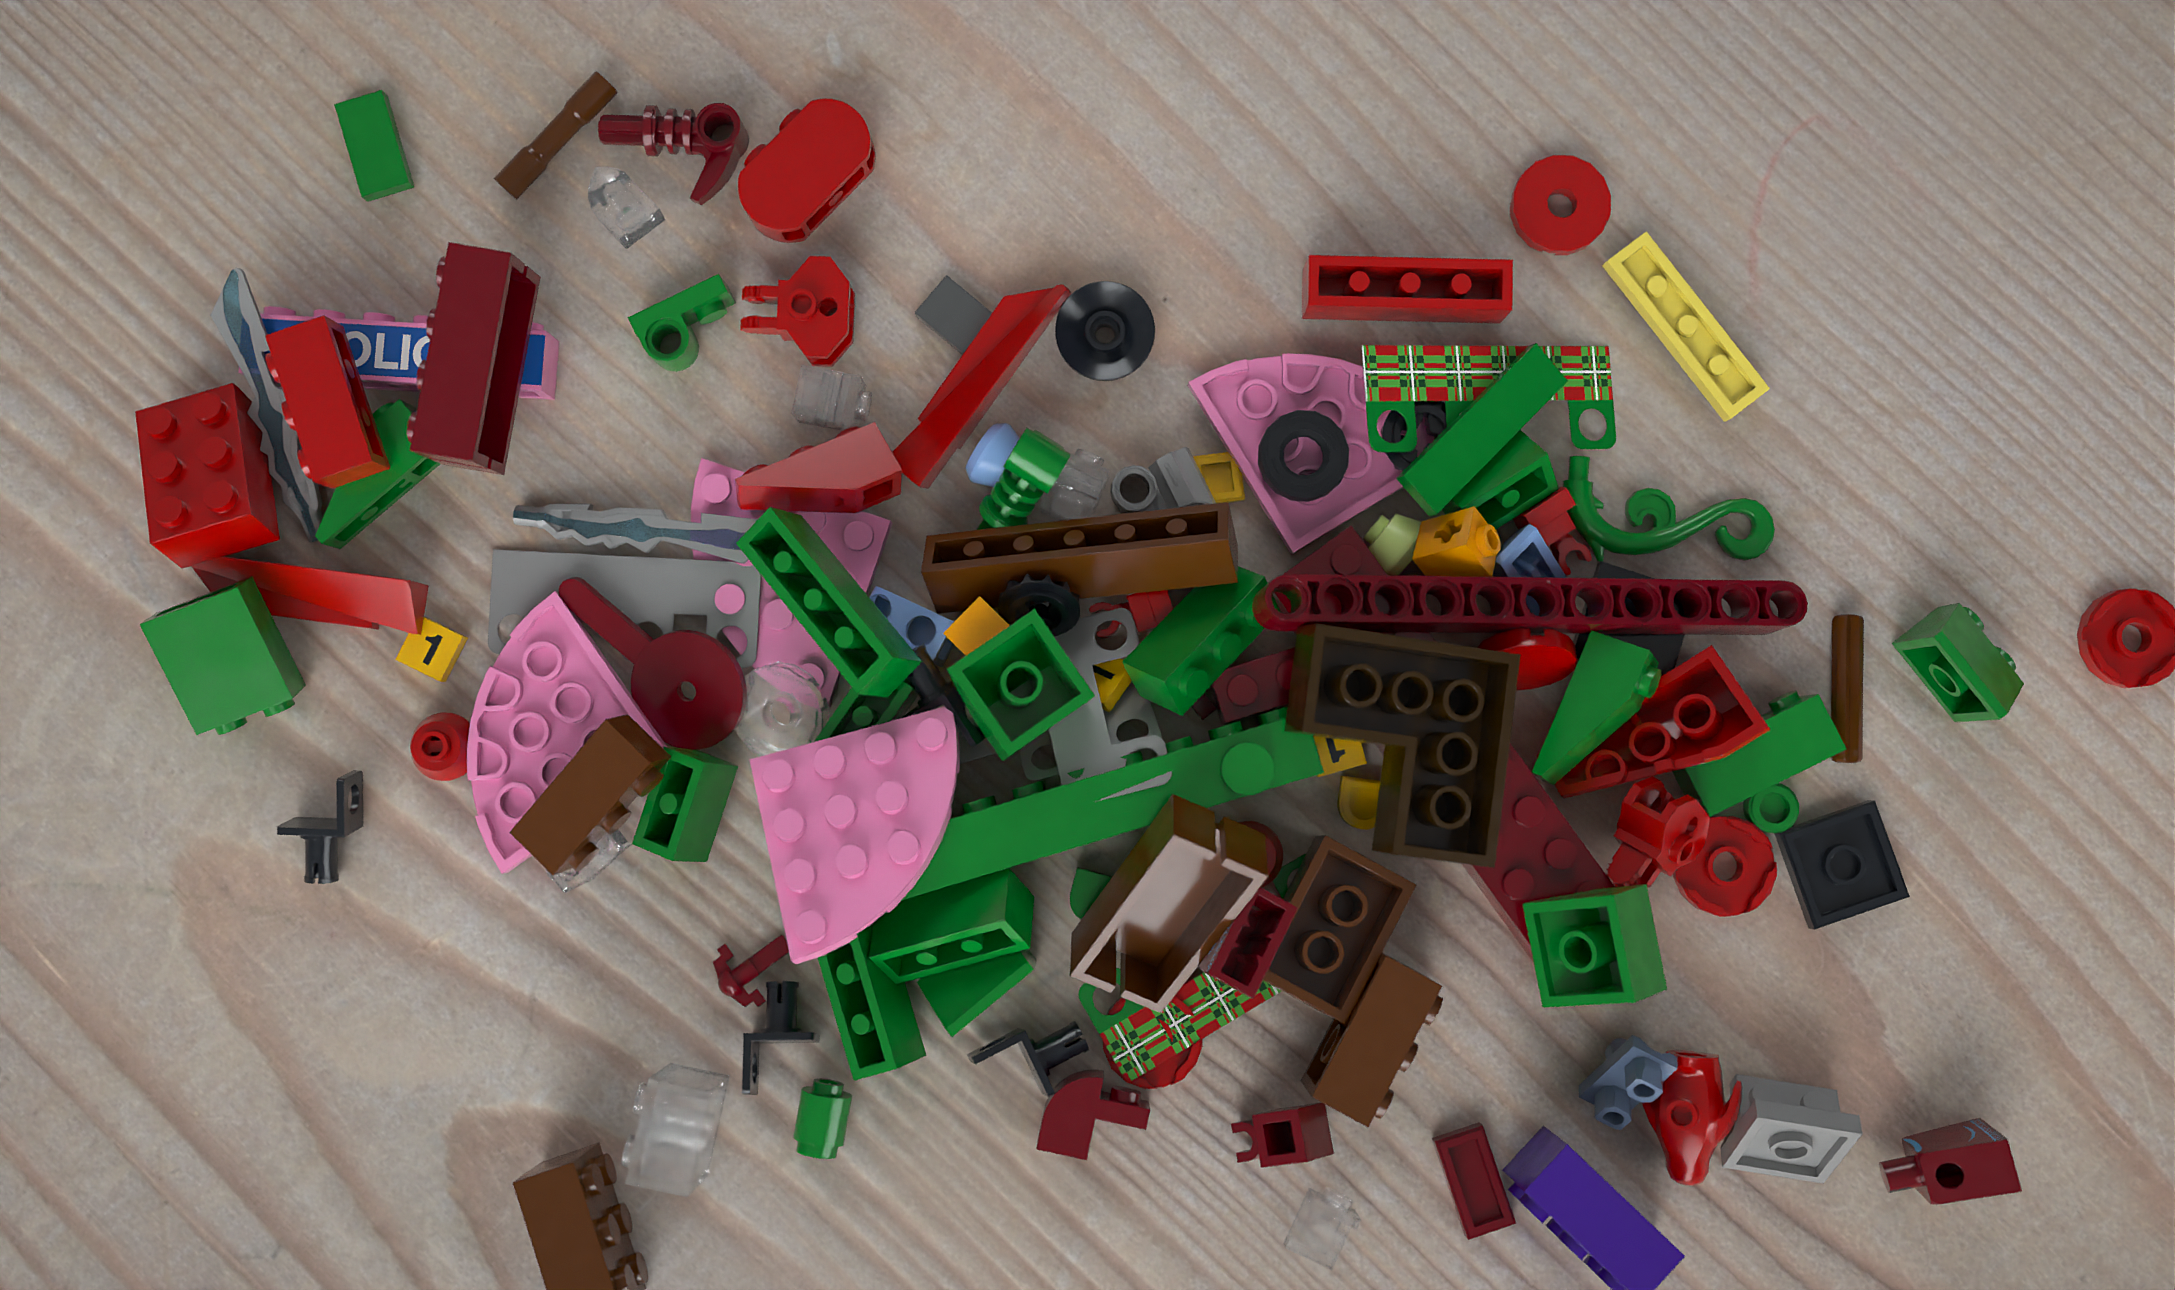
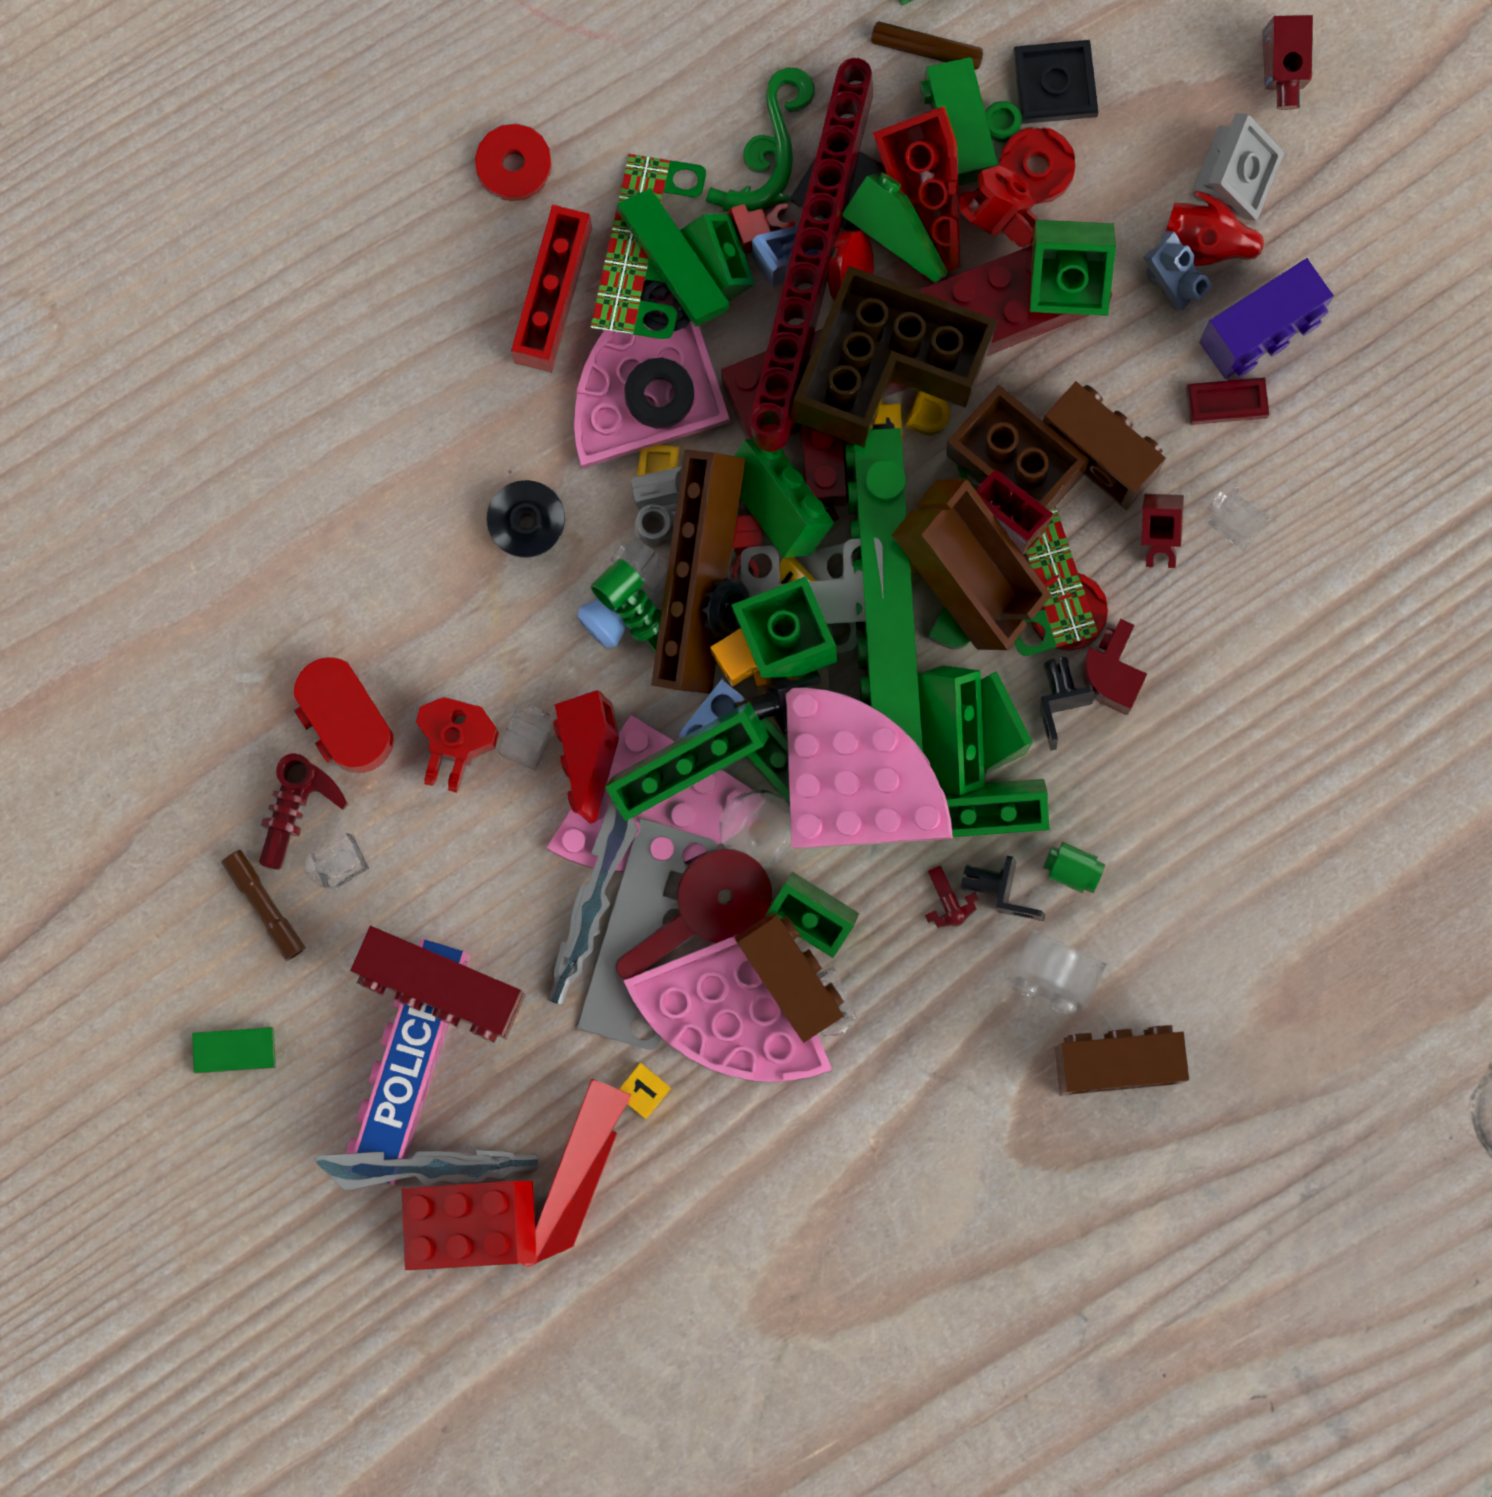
camera: 75 degrees left, 5 degrees down
(224, 657) = (613, 1245): green brick -> none
(322, 833) = (769, 1204): black bracket -> none
(325, 402) = (438, 1114): red brick -> none
(364, 500) = (487, 1086): green slope -> none
(453, 736) = (720, 1111): red cone -> none
(676, 314) = (432, 841): green plate -> none
(953, 314) = (495, 622): dark grey tile -> none
(977, 381) = (540, 622): red wedge -> none
(1393, 542) = (739, 341): yellowish green cone -> none
(1457, 545) = (755, 295): light orange brick -> none
(1685, 327) = (629, 94): light yellow plate -> none

